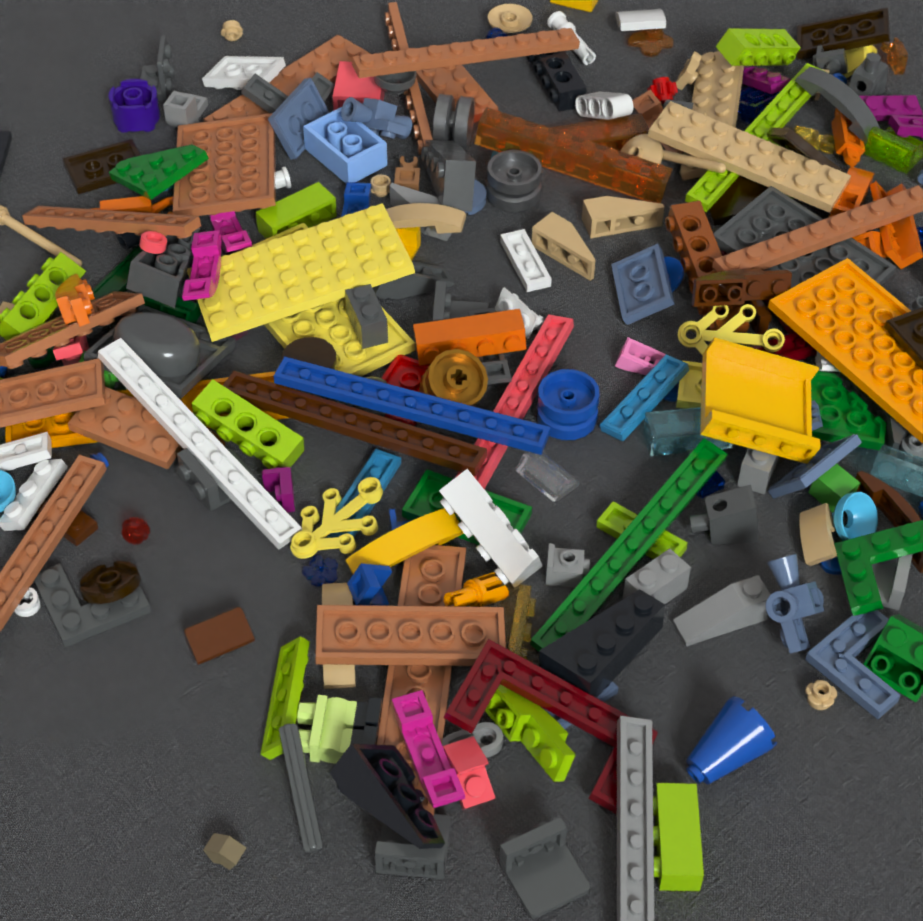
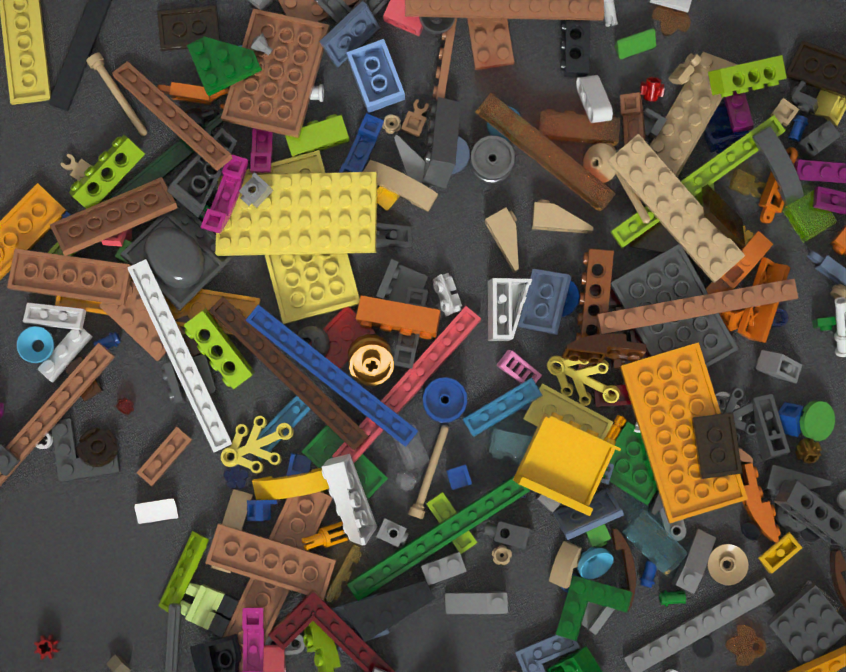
camera: 15 degrees right, 35 degrees up
(74, 300) = (124, 195): orange slope -> none
(100, 857) = (42, 649): none -> red gear
(153, 242) = (193, 163): coral tile -> none
(199, 139) = (260, 44): none -> light grey rock
(210, 570) = (164, 456): none -> nougat plate
(241, 253) = (262, 191): none -> light grey brick
(281, 482) = (231, 406): magenta bracket -> none
(312, 351) = (280, 297): dark brown tile -> none
(366, 316) = (330, 274): dark grey brick -> none
(378, 117) = (407, 59): sand blue brick -> none
(454, 121) = (466, 80): flat silver wheel -> none
(525, 260) = (471, 242): white plate -> none
(557, 506) = (406, 481): none -> clear plate
(588, 534) = (417, 509): none -> tan piece
(596, 299) = (504, 306): none -> white wedge
(623, 64) = (635, 43): none -> bright green slope
(626, 480) = (459, 477): none -> blue panel
(729, 547) = (501, 560): none -> tan plate
(792, 602) = (520, 623): sand blue brick -> none

